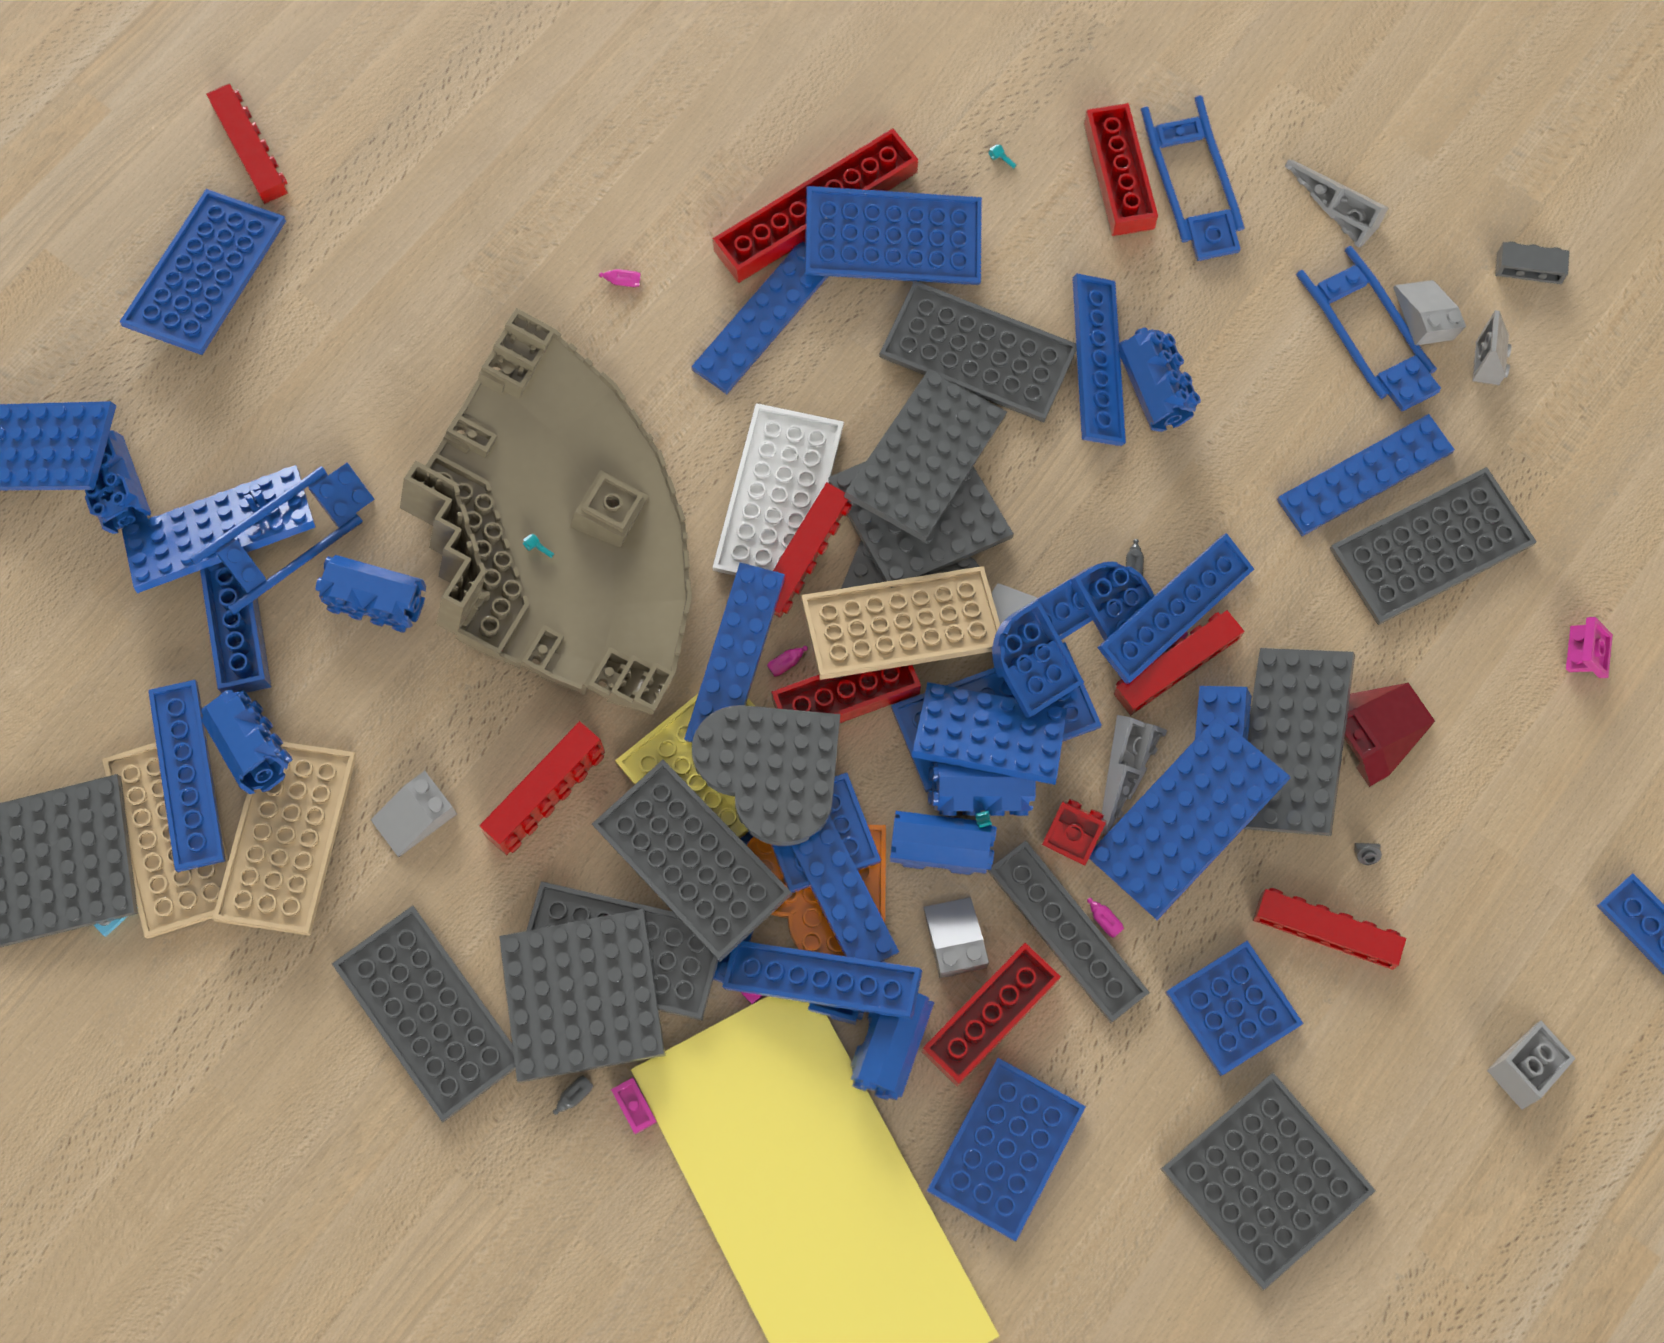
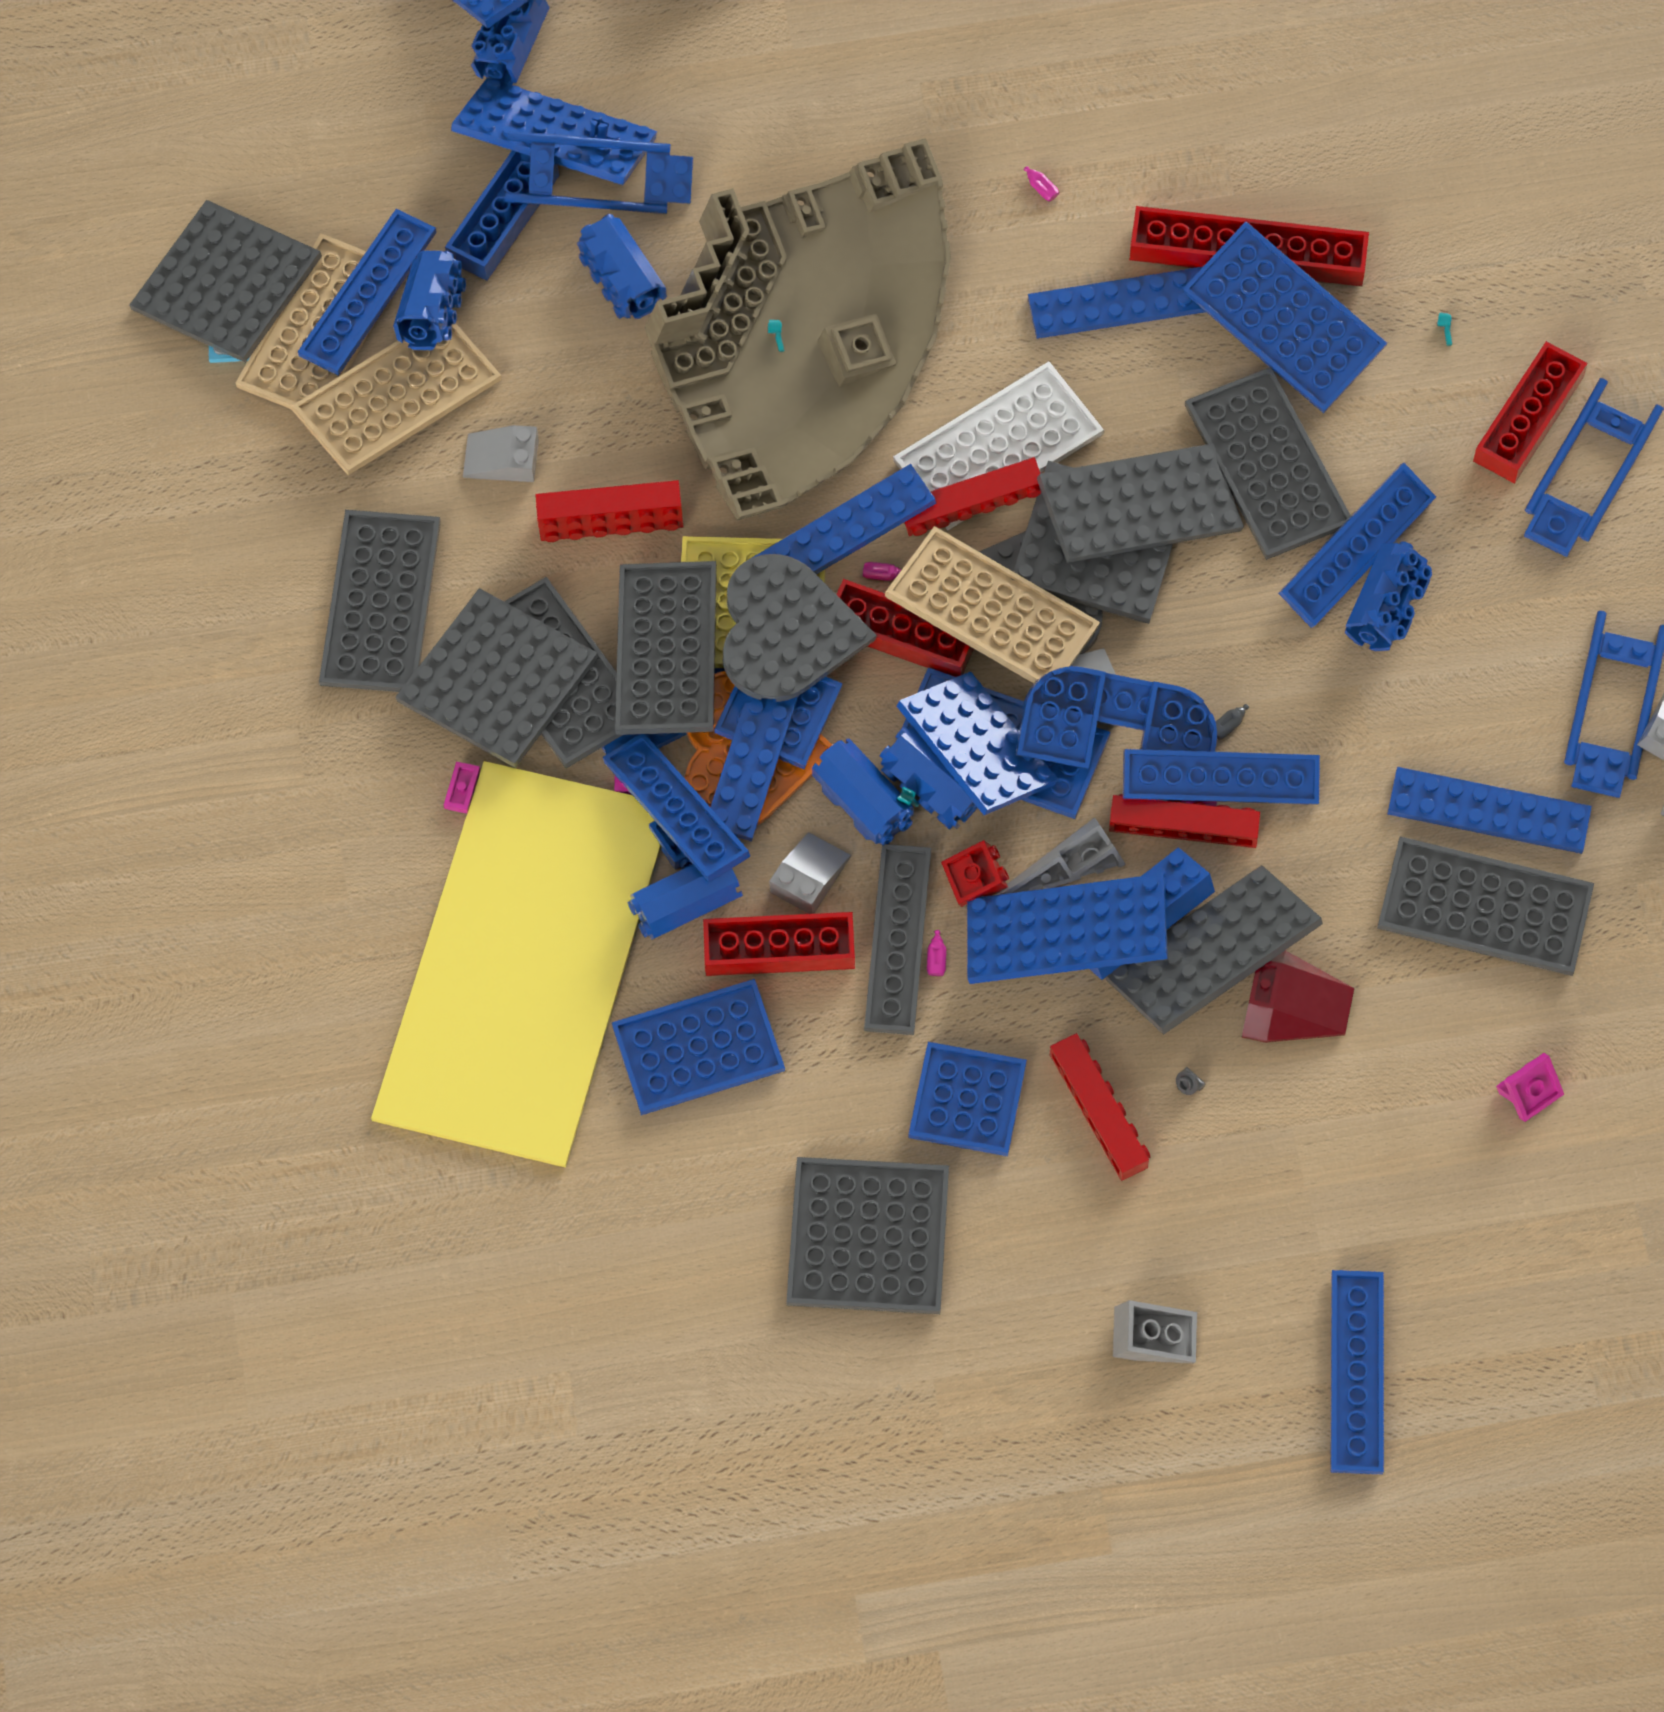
camera: 45 degrees right, 5 degrees down
(573, 1094) = (427, 744): dark grey piece -> none

